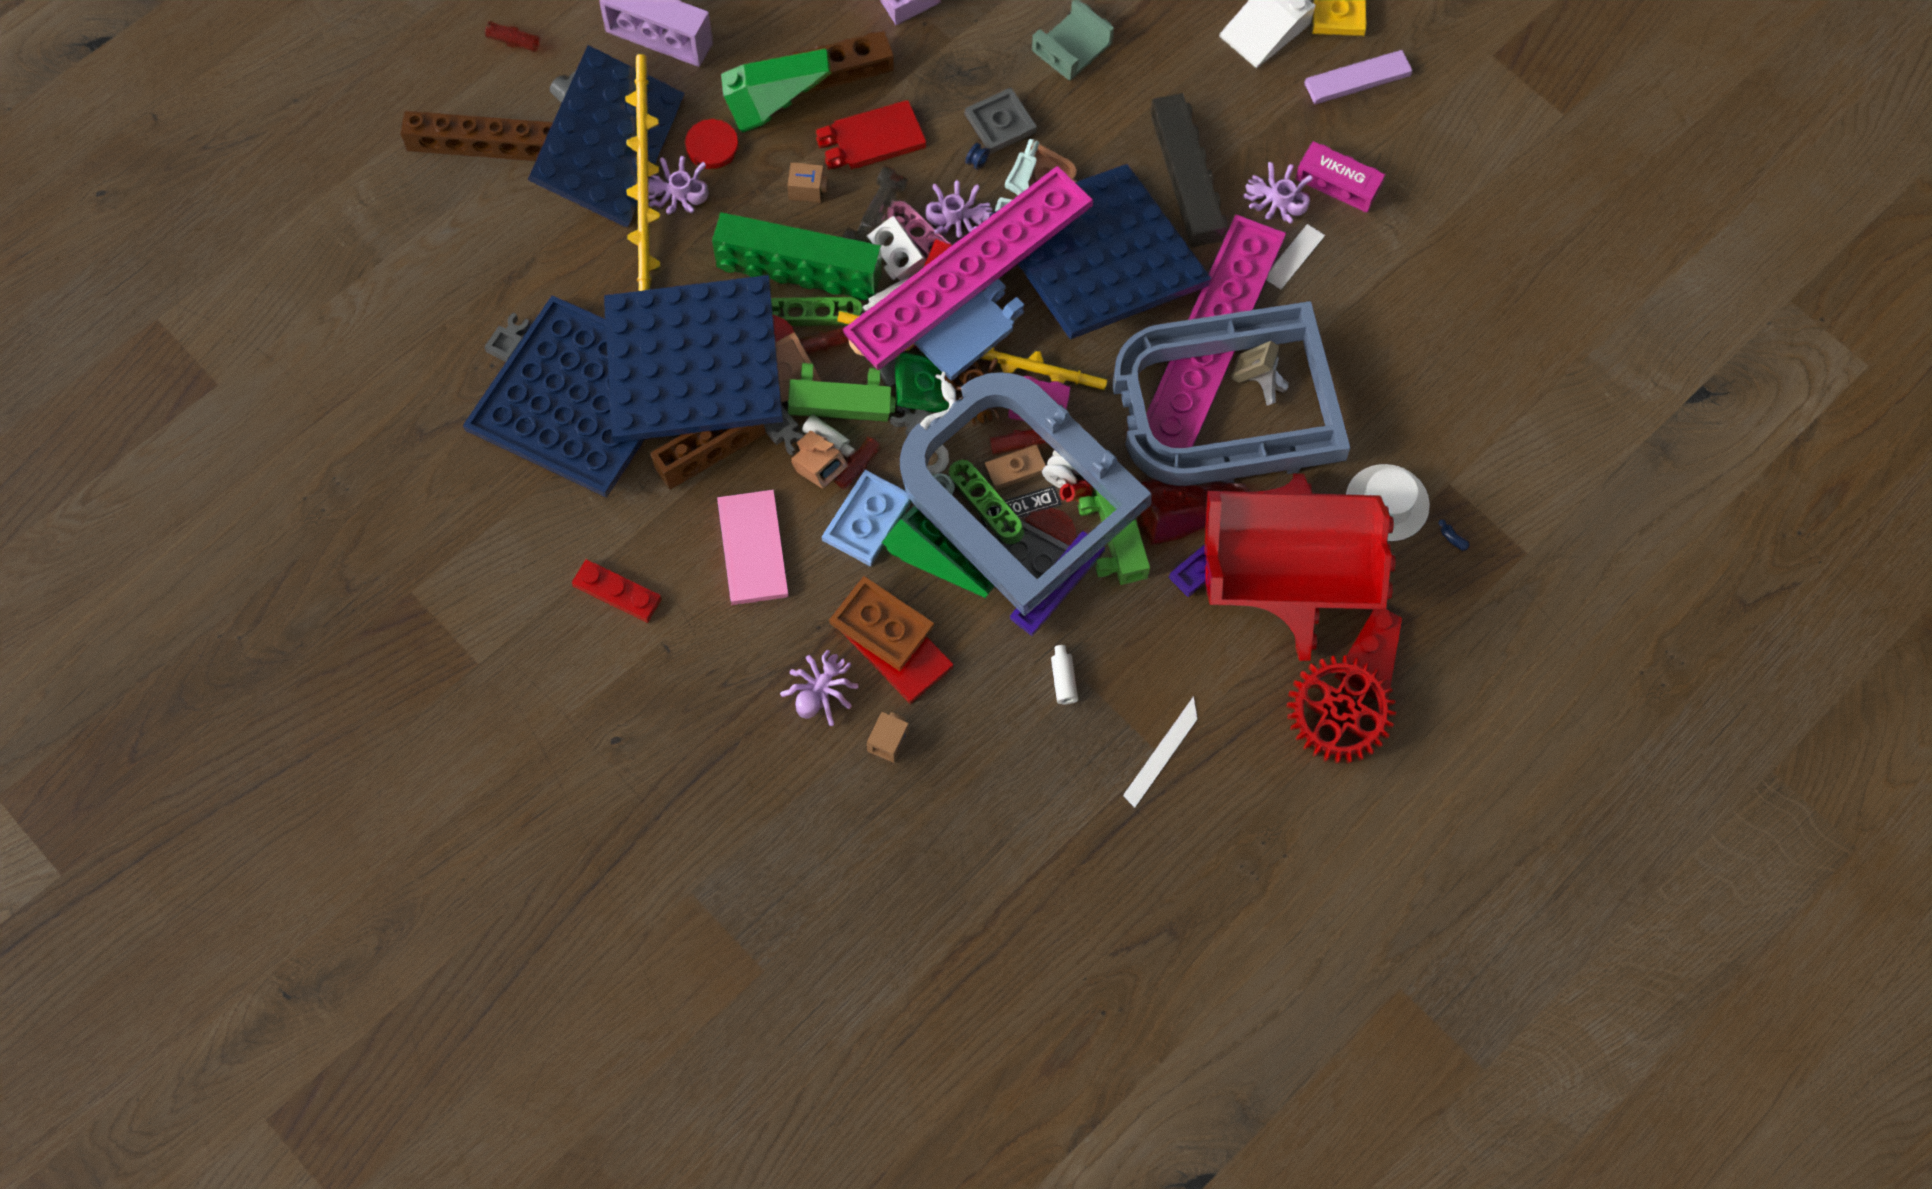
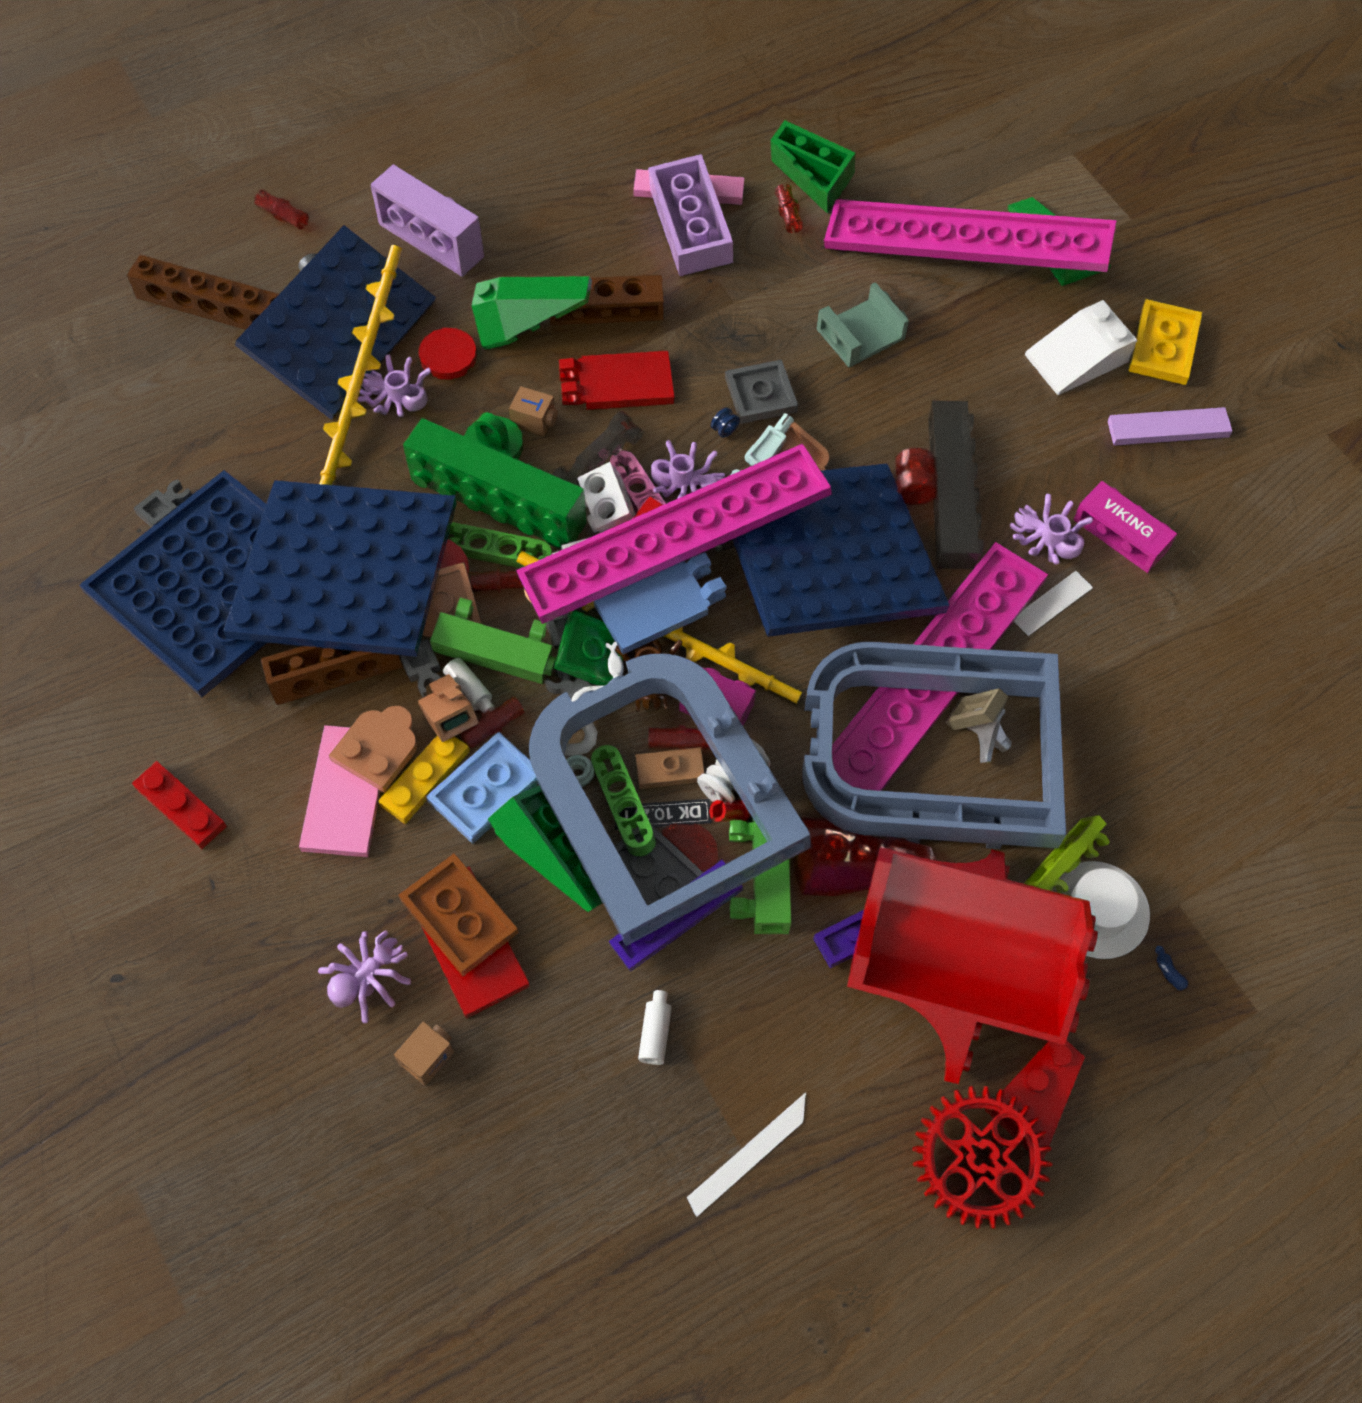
camera: 15 degrees right, 5 degrees down
(769, 504) = (377, 746): none -> nougat plate
(781, 209) = (497, 434): none -> green tile
(813, 522) = (422, 777): none -> yellow plate
(1154, 170) = (916, 476): none -> clear red wheel
(1354, 465) = (1068, 855): none -> lime plate

